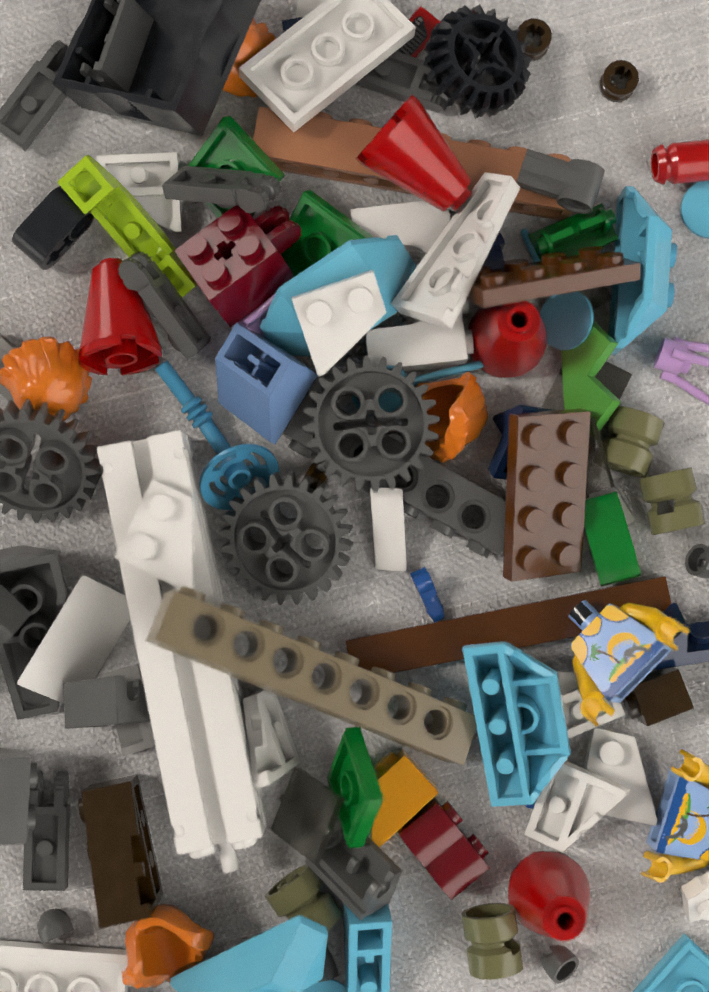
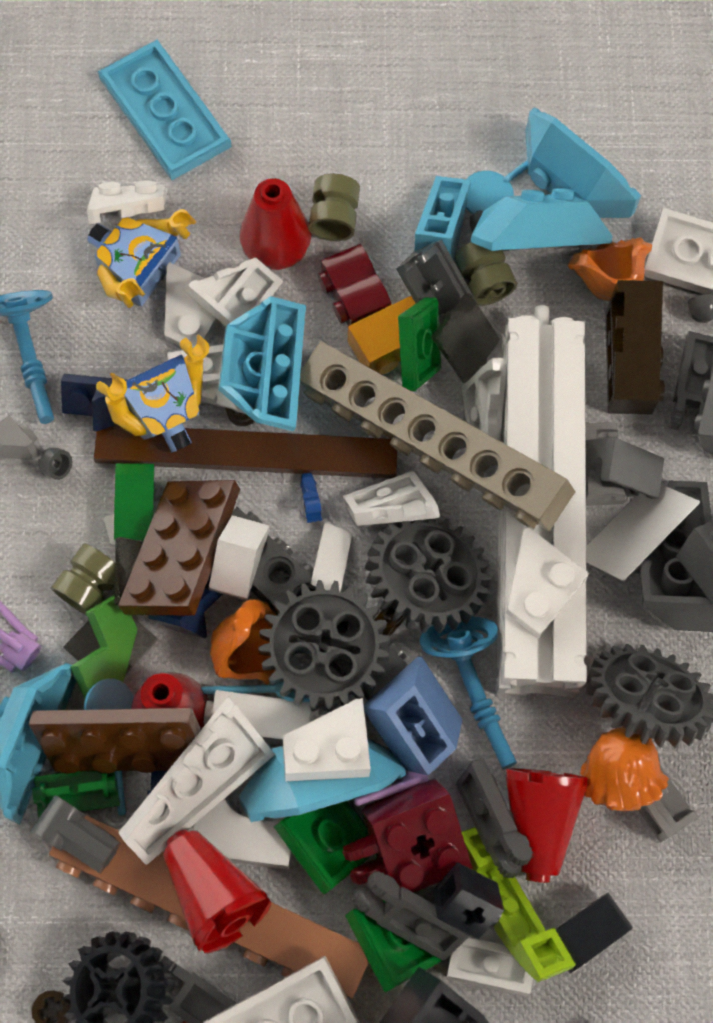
camera: 170 degrees left, 15 degrees down
(170, 214) = (468, 901): none -> black brick
(341, 606) = (392, 501): none -> white wing
(483, 499) = (238, 557): none -> white slope
(560, 963) = (287, 175): dark grey hinge -> none
(658, 697) = (133, 355): dark brown brick -> none
(667, 486) = (66, 513): olive wheel -> none

